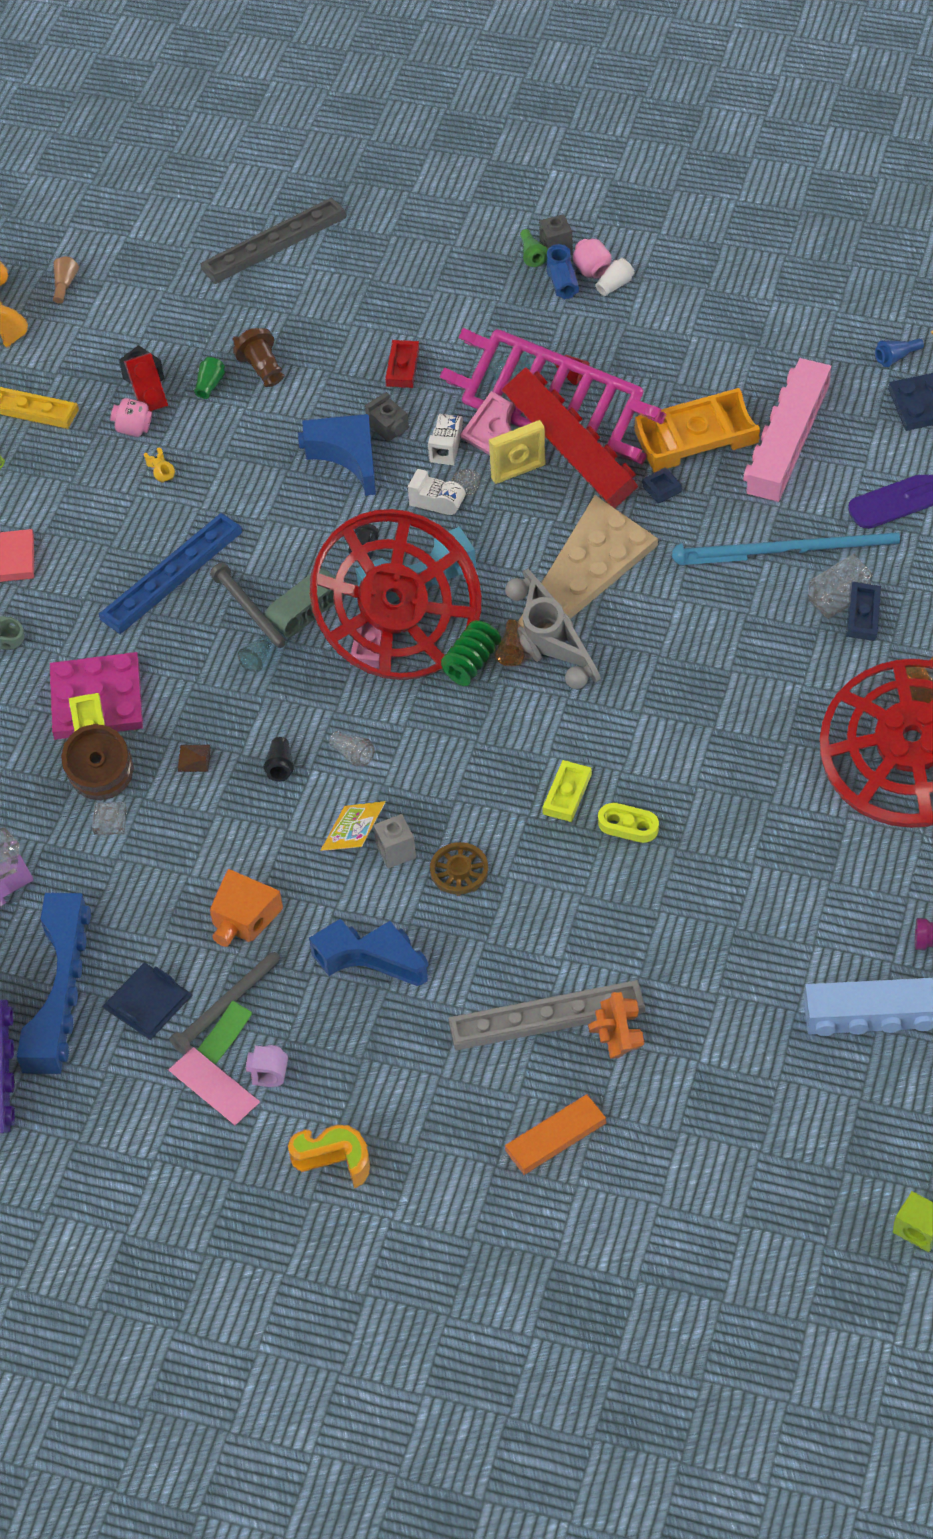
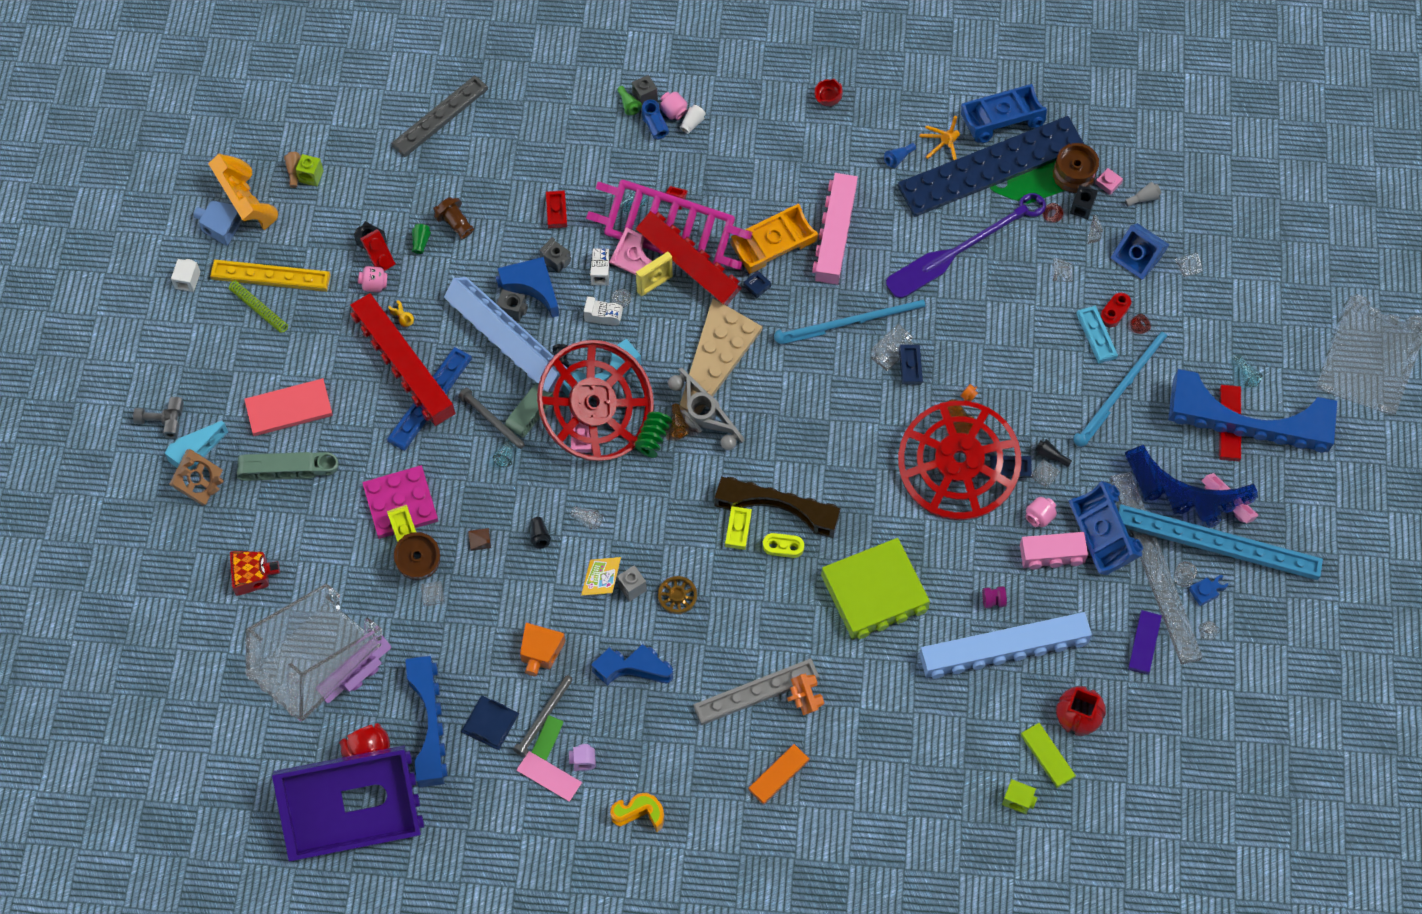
camera: 15 degrees left, 10 degrees up
(82, 281) = (309, 170): none -> lime brick
(144, 518) = (402, 359): none -> red brick
(287, 495) = (502, 330): none -> light blue brick
(311, 470) = (510, 298): none -> dark grey brick
(687, 790) = (819, 517): none -> dark brown arch
(753, 898) = (875, 589): none -> lime brick
(811, 265) = (828, 92): none -> red hair

